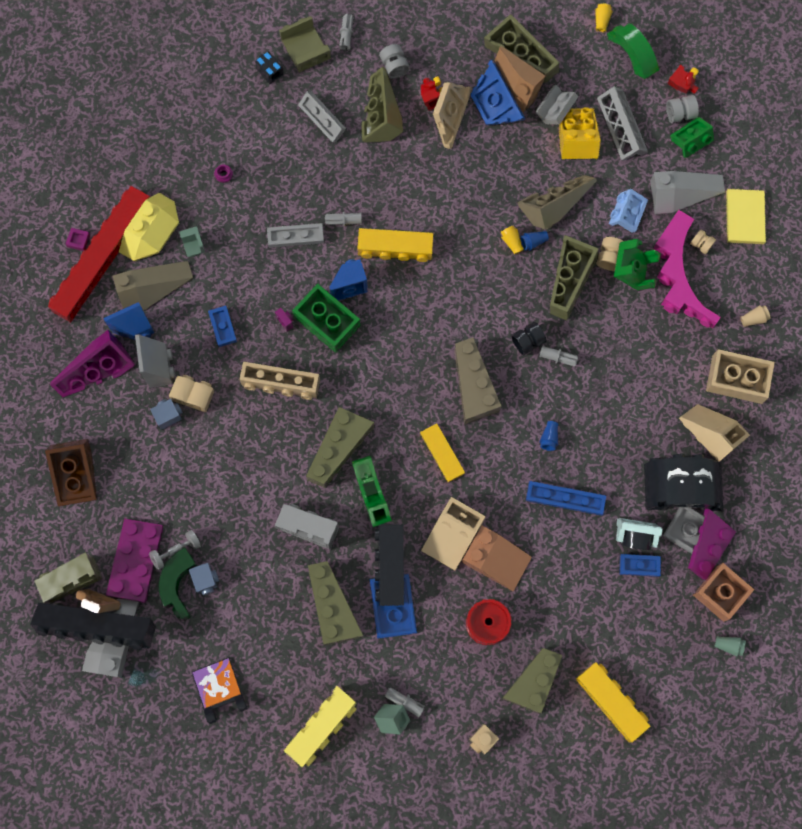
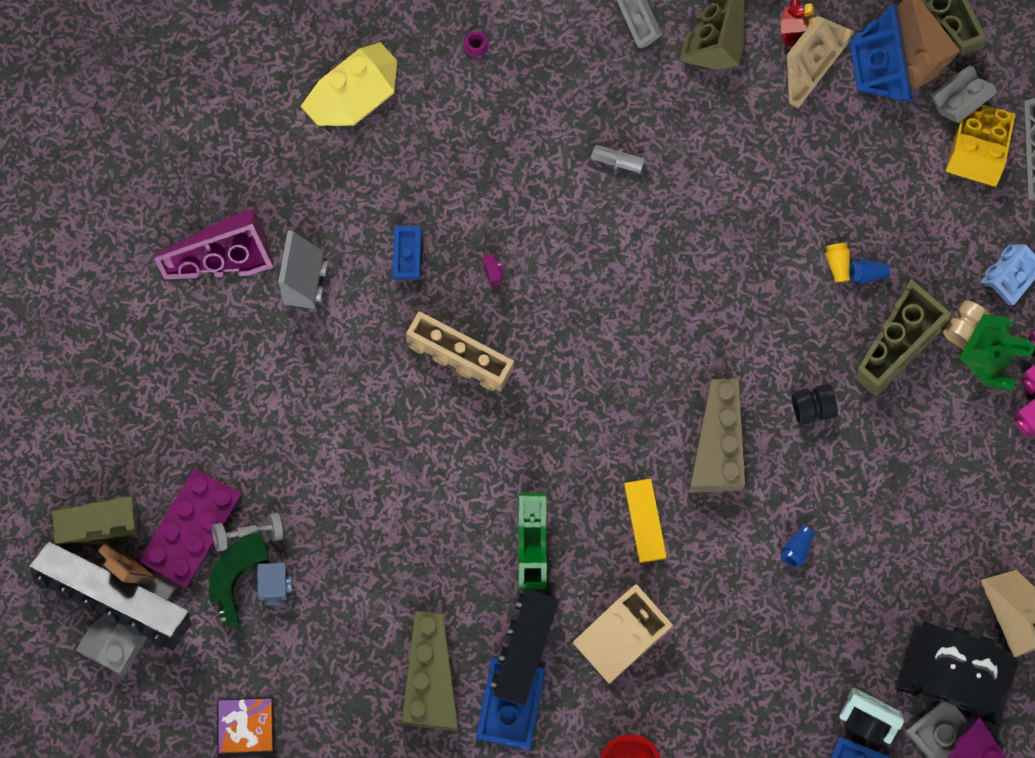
camera: 15 degrees right, 0 degrees up
(72, 472) = (145, 383): reddish brown slope -> none
(77, 239) = (251, 72): magenta plate -> none
(97, 257) = (271, 104): red brick -> none
(130, 322) = (286, 209): blue slope -> none
(136, 678) = (143, 684): clear light blue hinge -> none
(151, 283) = (325, 165): dark tan wedge -> none
(166, 413) = (294, 346): sand blue brick -> none
(191, 393) = (336, 330): tan brick -> none
(192, 241) = (403, 124): sand green panel -> none
(295, 235) = (545, 160): light grey plate -> none
(307, 525) = (432, 558): light grey wedge -> none
(326, 318) = (549, 287): green brick -> none
(340, 442) = (515, 459): olive wedge -> none
(349, 280) = (596, 247): blue slope -> none
(395, 244) = (676, 217): yellow brick -> none
(496, 558) = (670, 686): nougat slope -> none
(551, 207) = (909, 233): dark tan wedge -> none
(558, 356) = (847, 441): light grey axle -> none
(565, 498) = (791, 637): blue plate -> none

